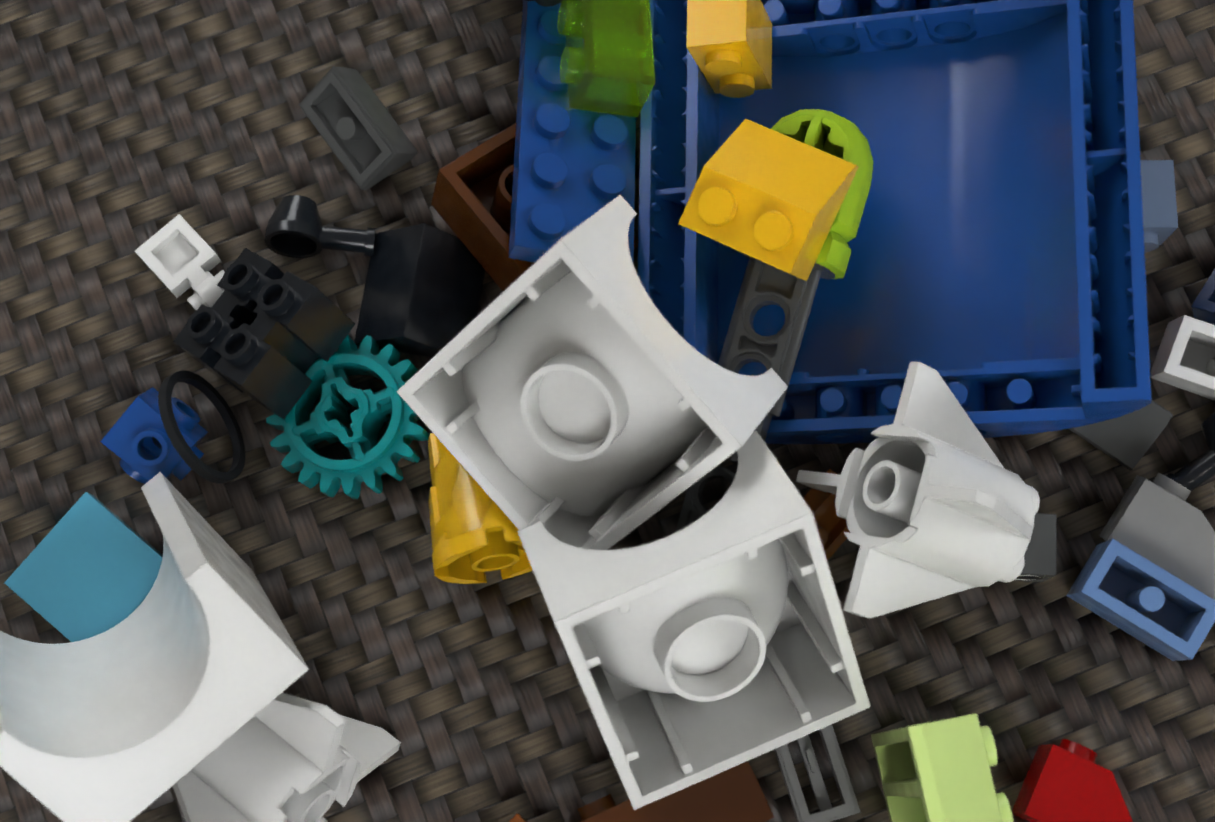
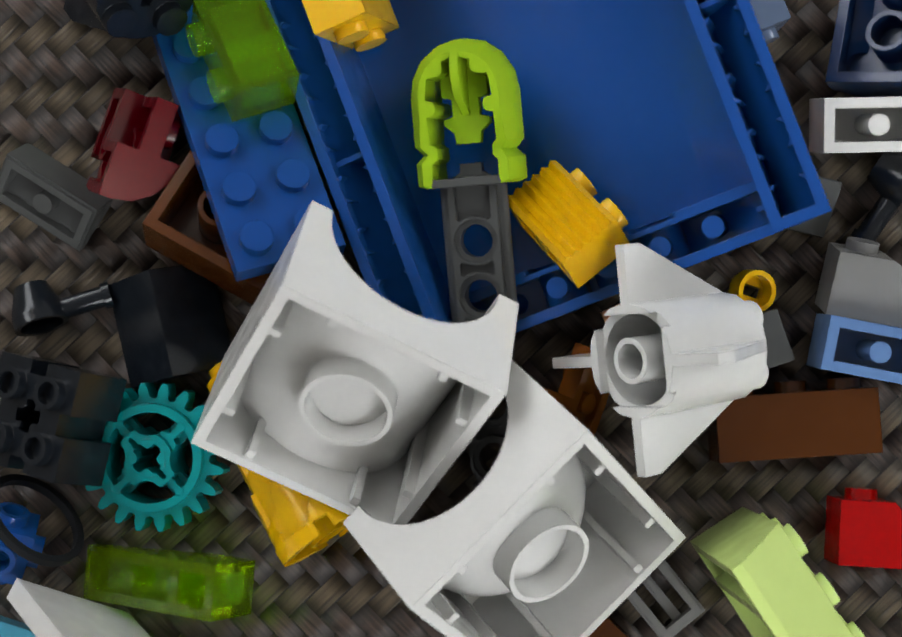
camera: 30 degrees left, 10 degrees up
(311, 548) = (170, 581): none -> clear neon green slope
(464, 102) = (135, 146): none -> dark red brick
(769, 197) = (439, 146): yellow slope -> none
(869, 333) = (568, 221): none -> yellow brick
(1033, 647) = (799, 423): none -> reddish brown brick
(1048, 487) = (758, 280): none -> yellow hinge

